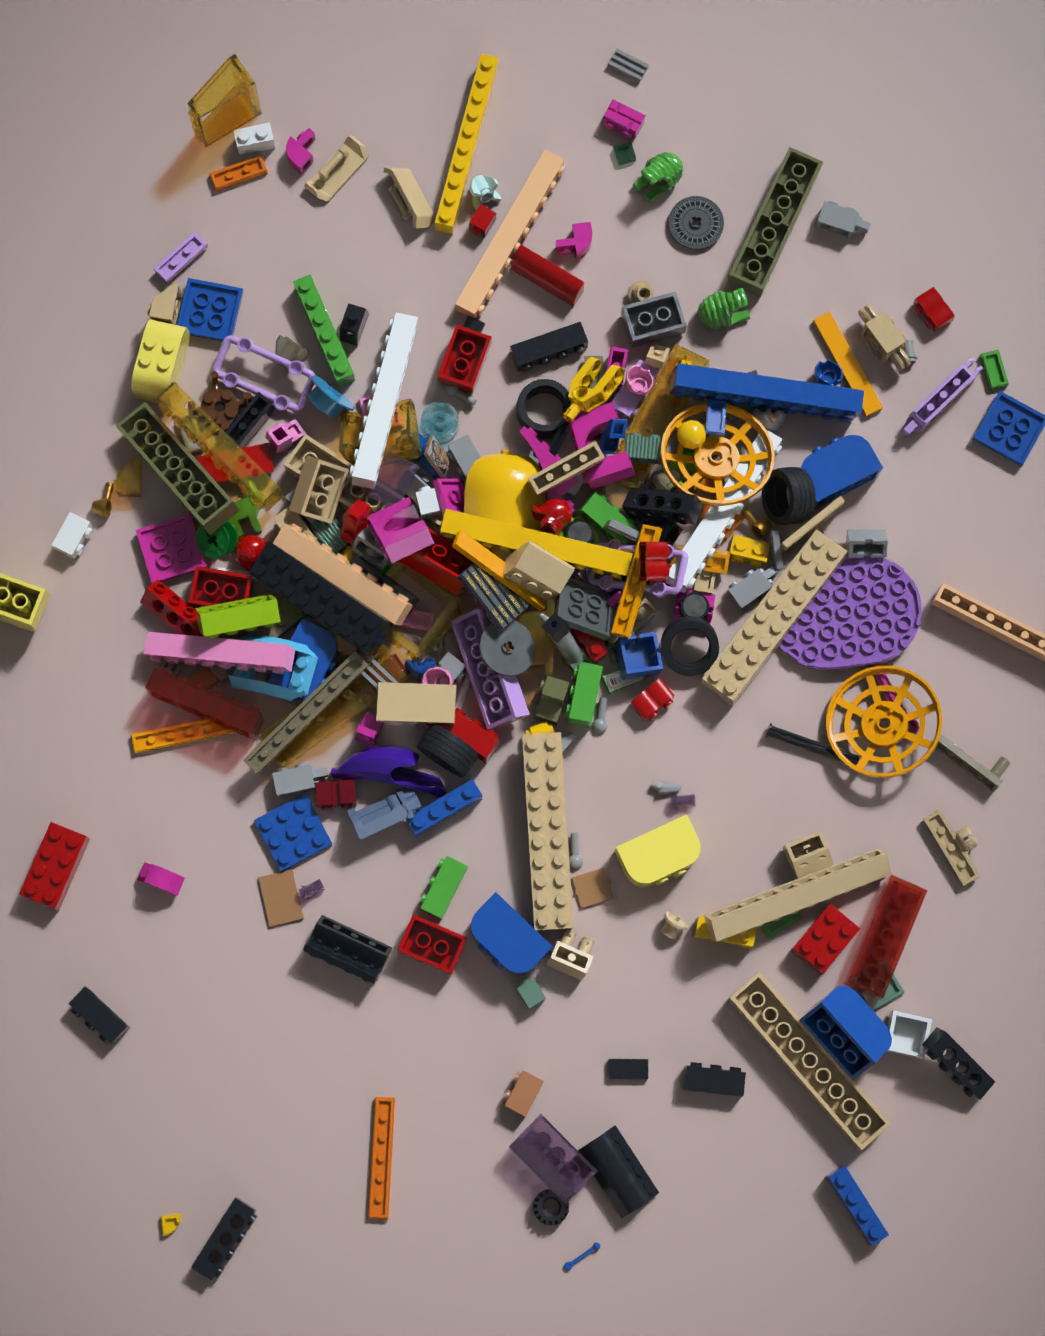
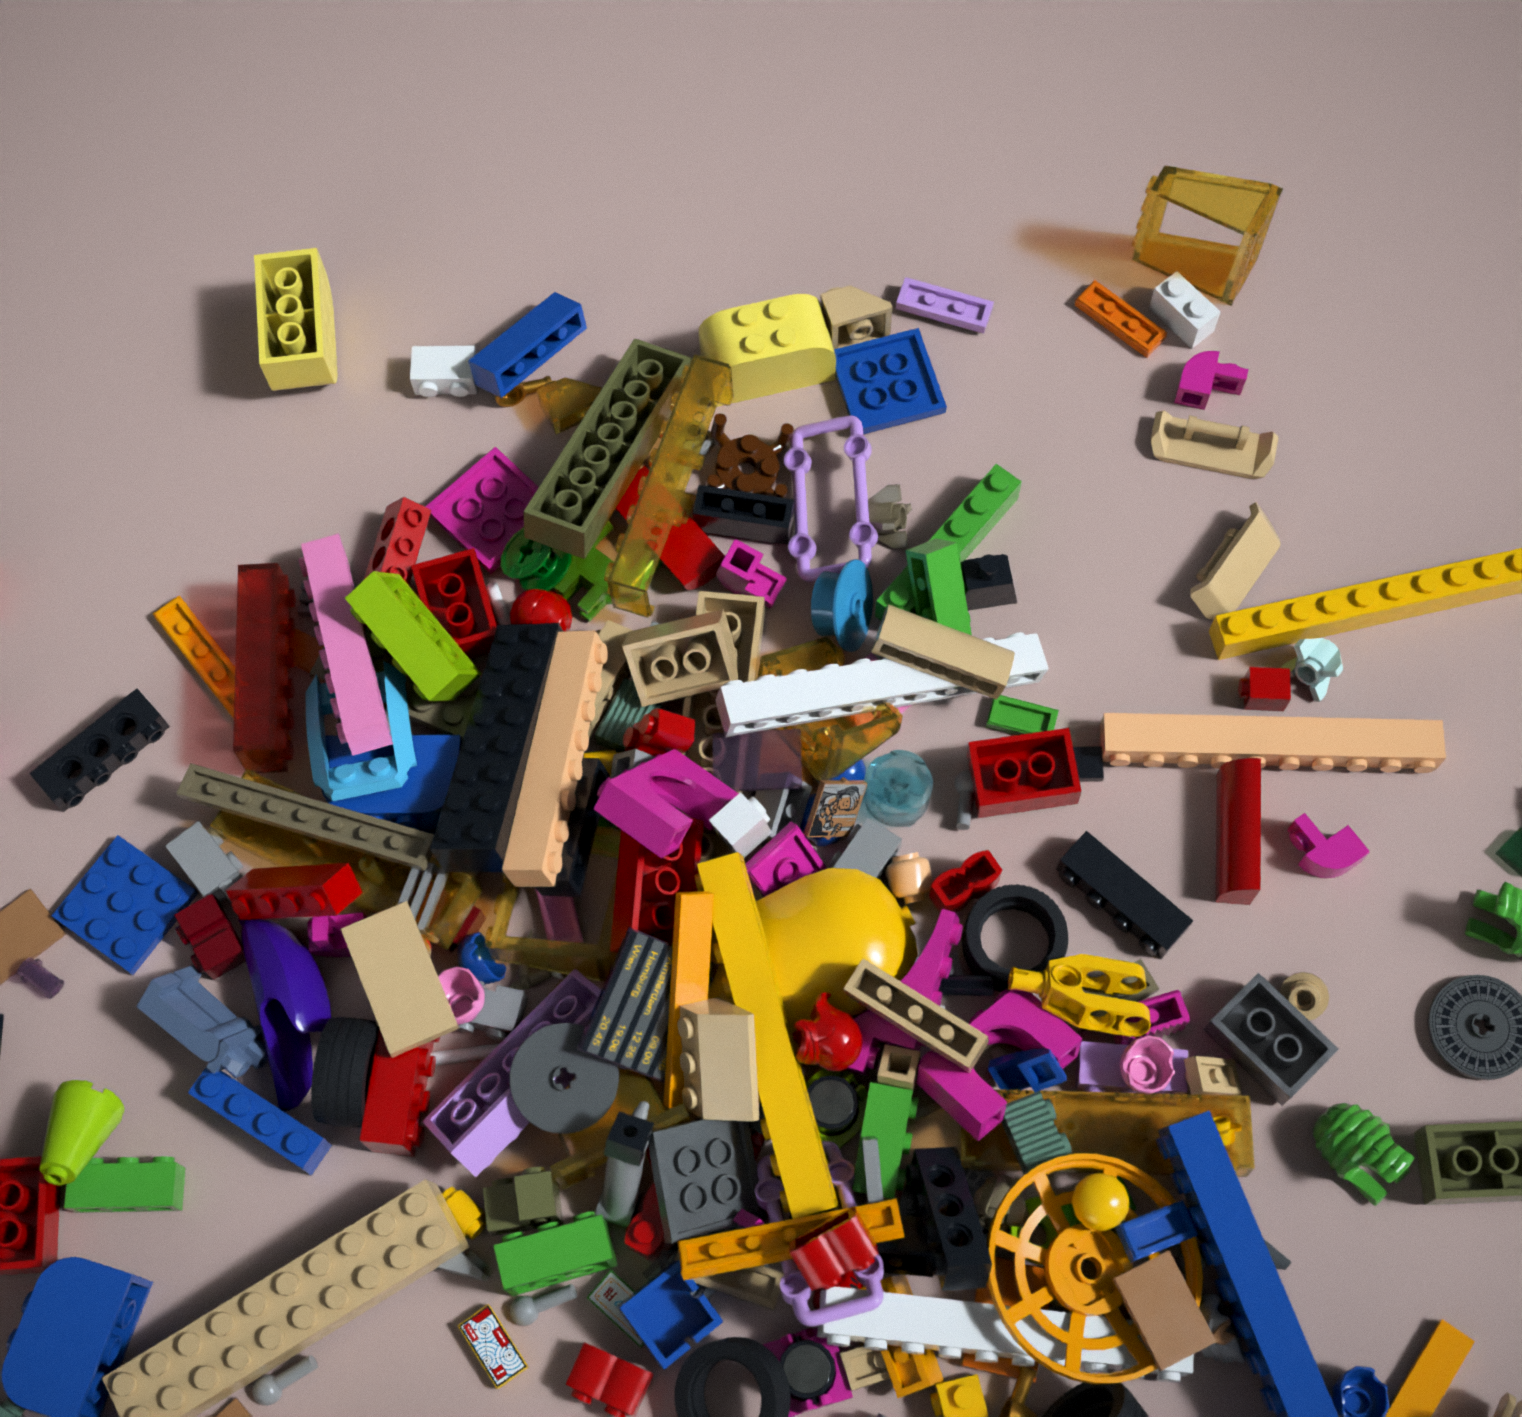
camera: 70 degrees right, 10 degrees down
(85, 483) = (527, 344): none -> blue brick
(190, 781) = (82, 750): none -> black brick
(342, 736) = (294, 891): none -> red brick
(351, 347) = (939, 584): none -> bright green brick
(386, 361) = (943, 652): none -> tan brick
(406, 894) = (77, 1129): none -> lime cone
(432, 345) = (1020, 716): none -> bright green tile
(487, 441) = (909, 877): none -> light nougat head
(505, 416) = (971, 881): none -> red brick
(581, 492) = (899, 1067): none -> tan brick
(609, 747) = (493, 1346): none -> tile
(751, 434) = (1164, 1310): none -> medium nougat piece

